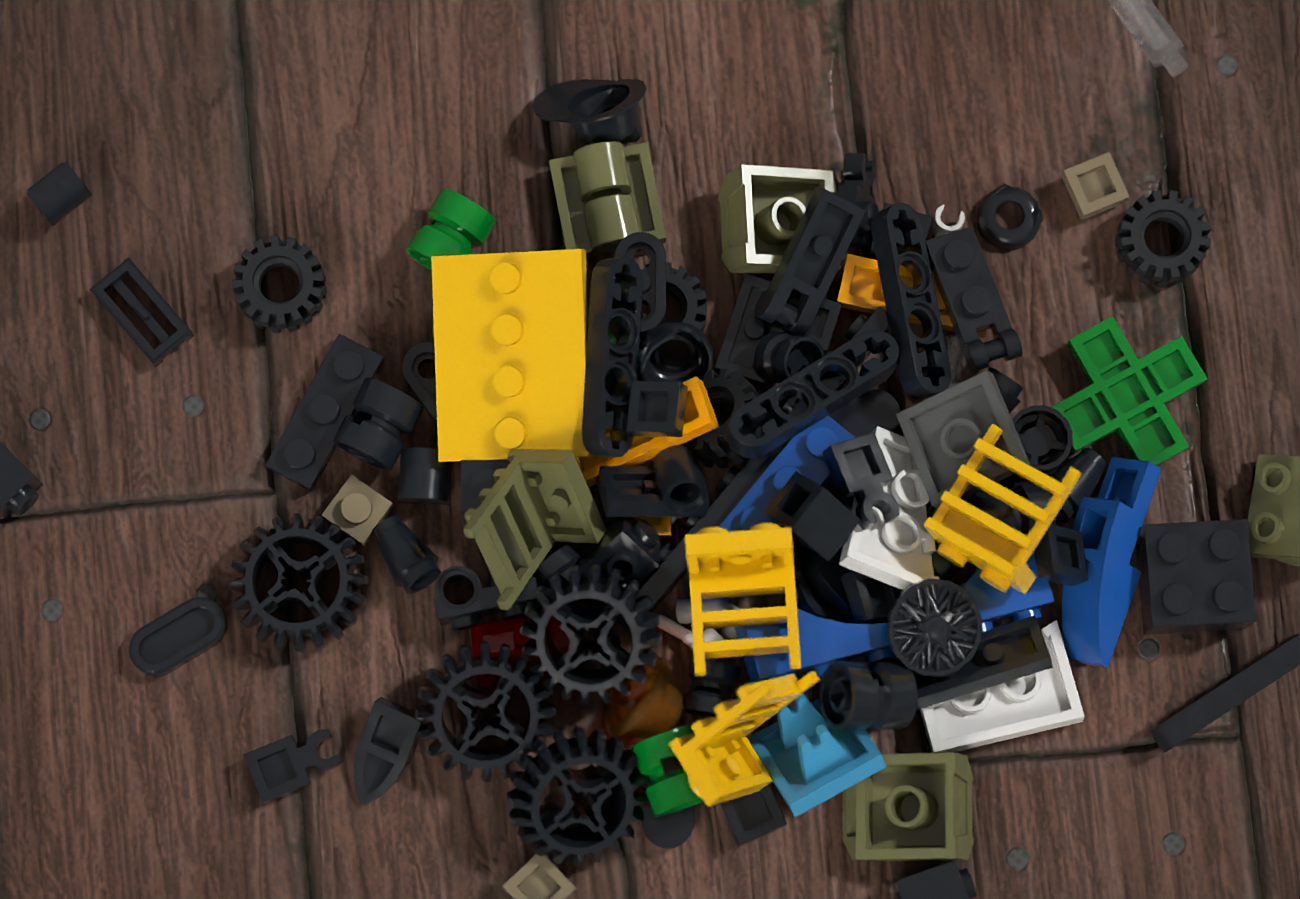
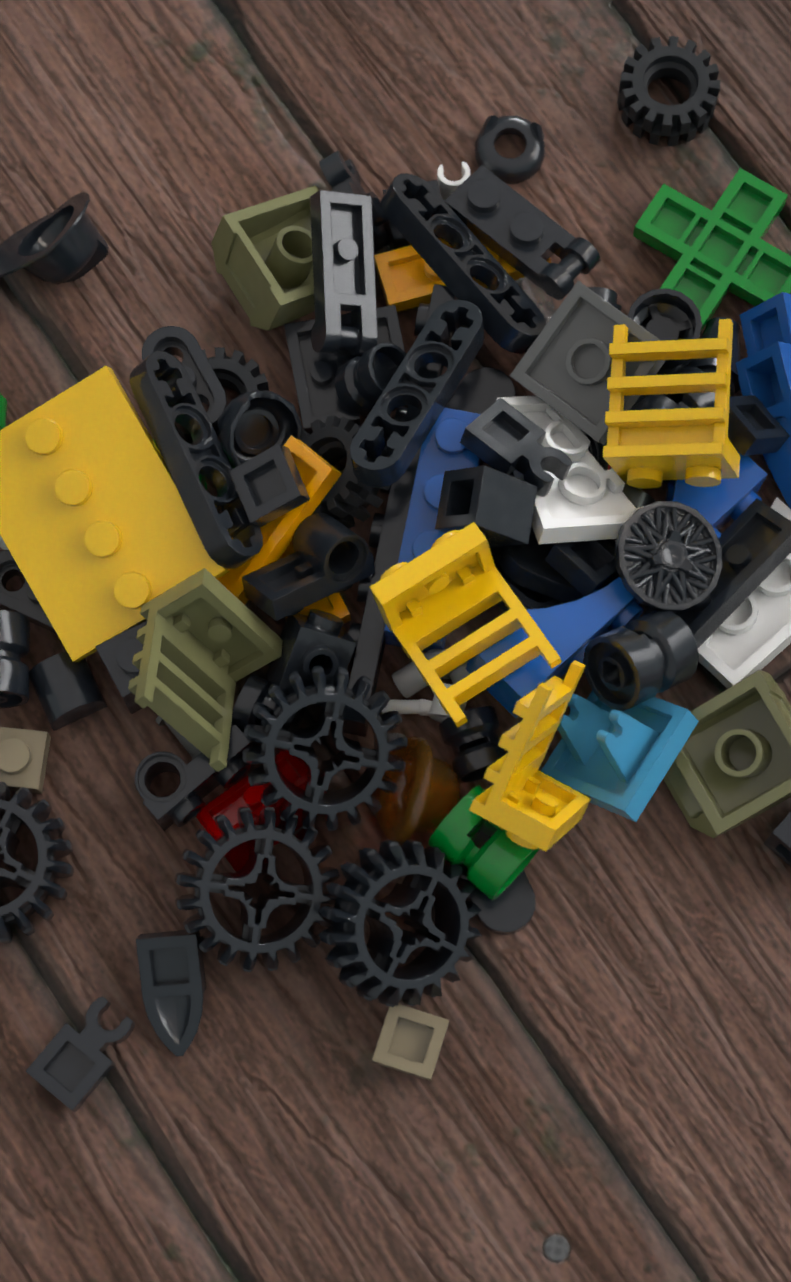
camera: 25 degrees left, 5 degrees down
(406, 556) = (90, 777): black cone -> none
(606, 196) = (100, 317): olive plate -> none
(753, 815) = (587, 848): black plate -> none
(1095, 186) = (576, 76): dark tan plate -> none

